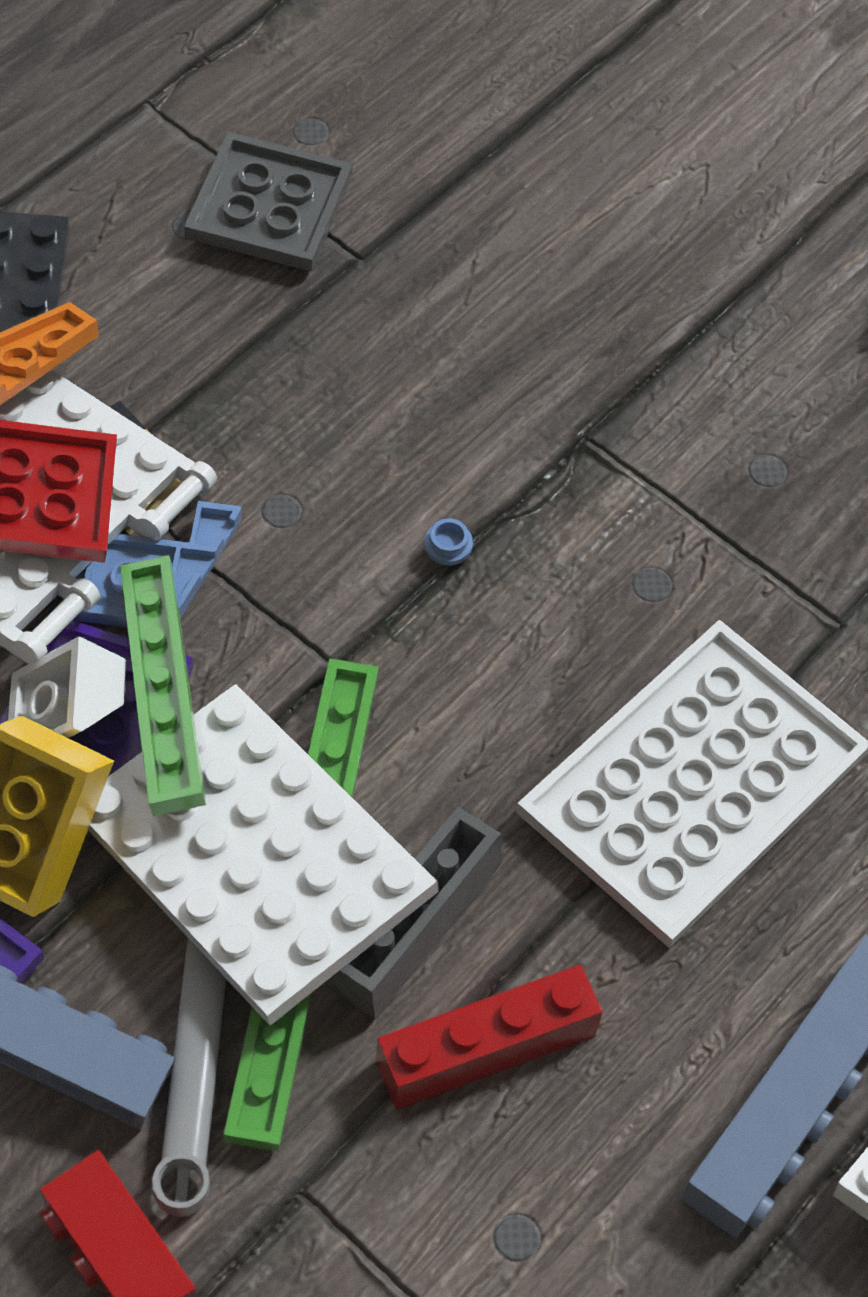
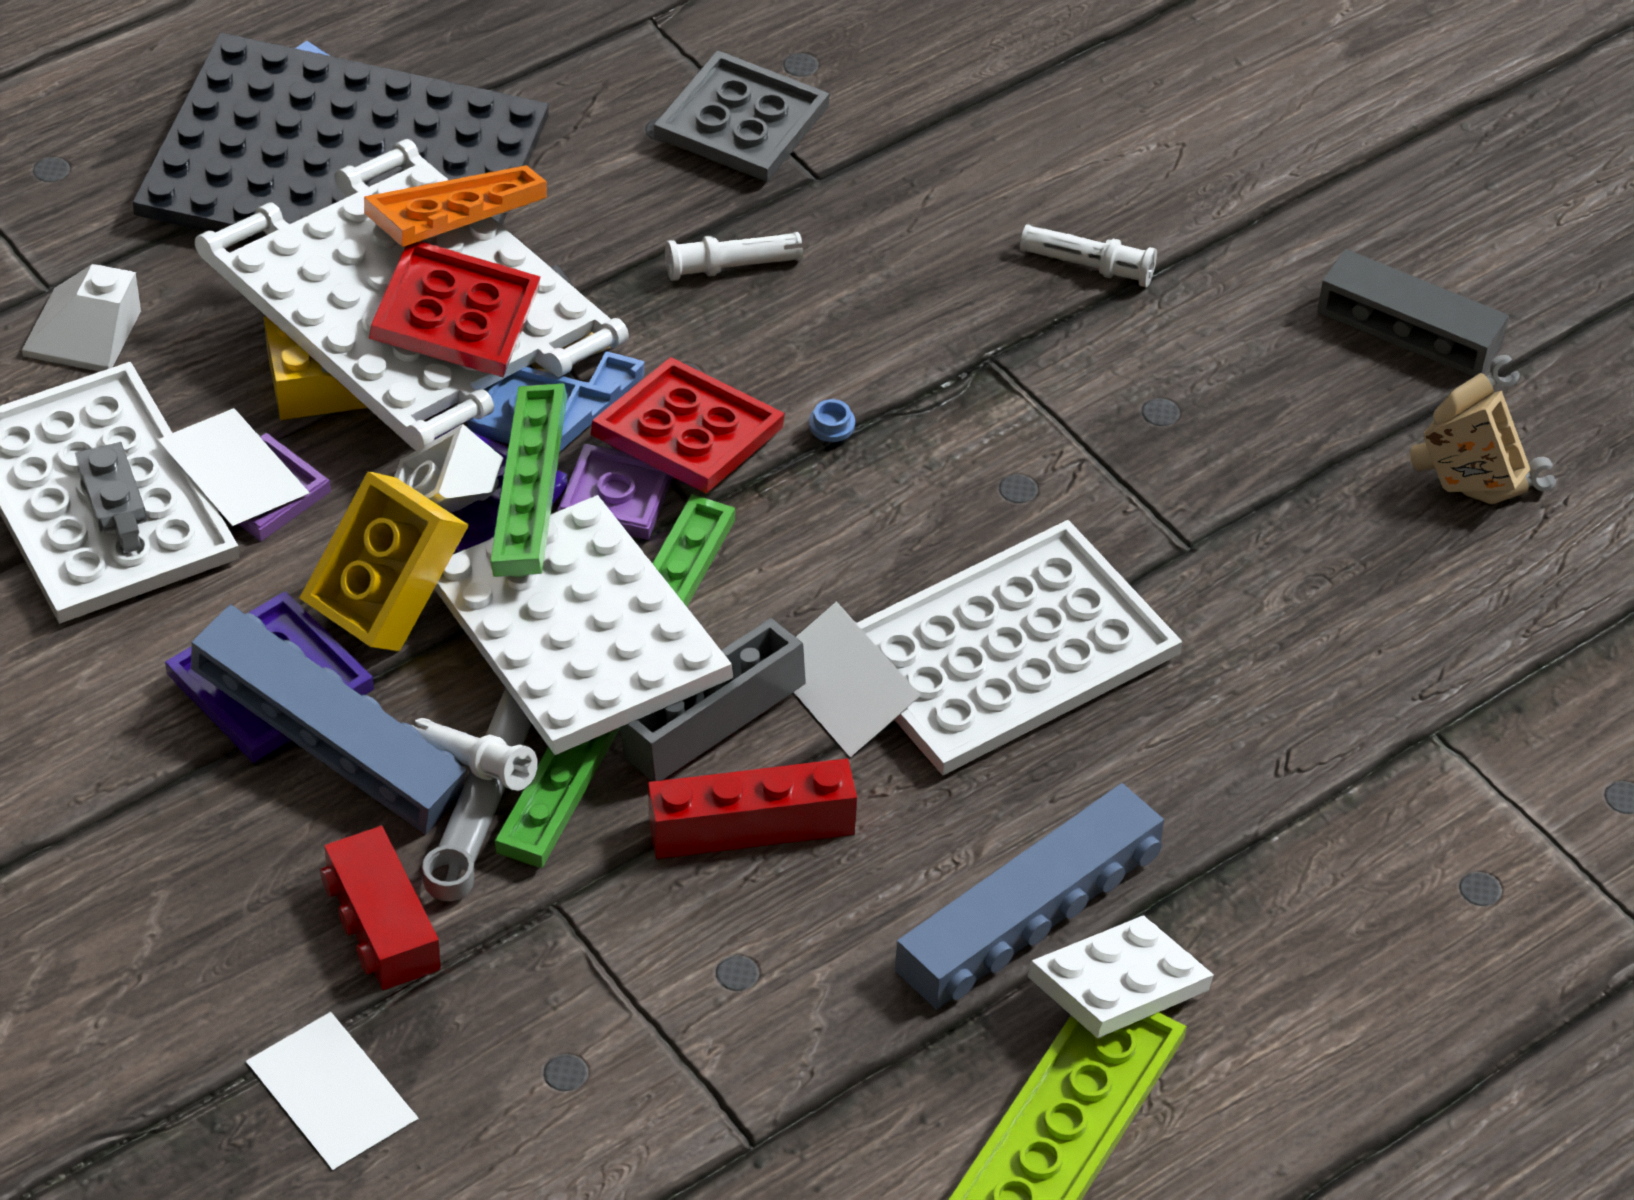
camera: 15 degrees right, 10 degrees down
(193, 1036) = (486, 756): none -> white pin
(247, 652) = (623, 483): none -> medium lavender tile
(279, 368) = (712, 255): none -> white pin
(304, 575) = (687, 424): none -> red plate
(549, 854) = (850, 681): none -> white sticker
(675, 305) = (1108, 257): none -> white pin

